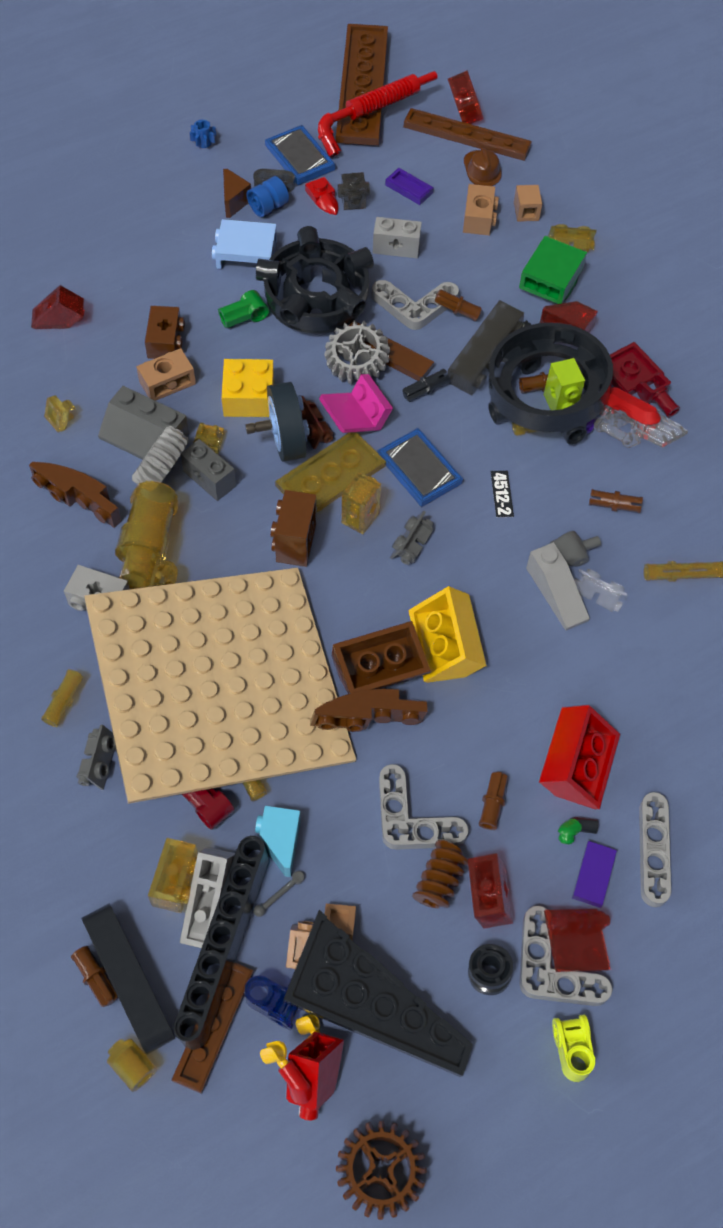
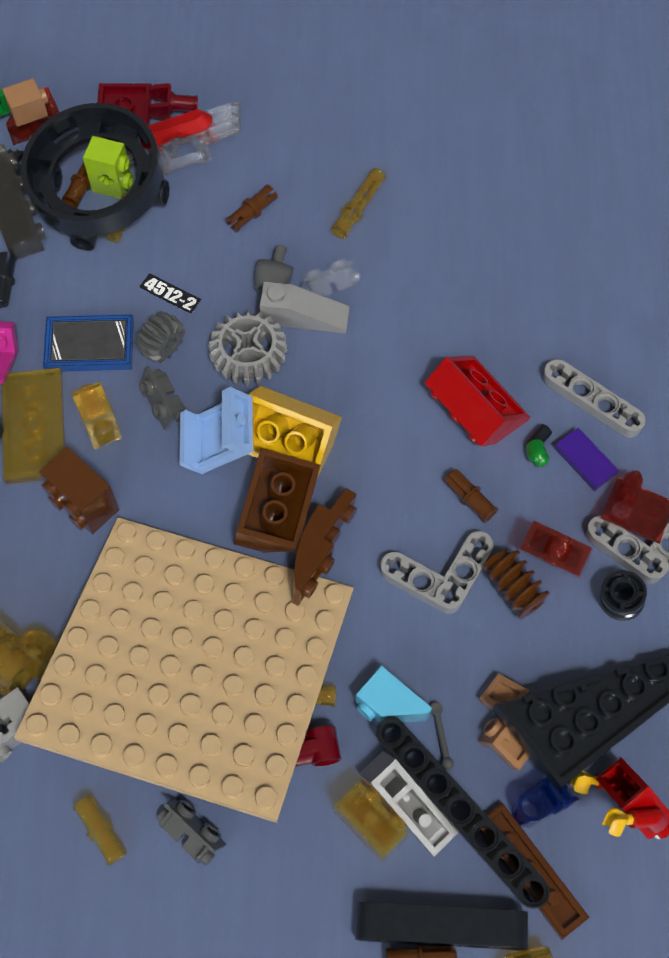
camera: 55 degrees left, 5 degrees up
(405, 588) = (217, 433): none -> light blue panel
(456, 505) = (160, 336): none -> dark grey gear
(508, 561) = (249, 357): none -> light grey gear
(569, 304) = (26, 101): none -> medium nougat brick

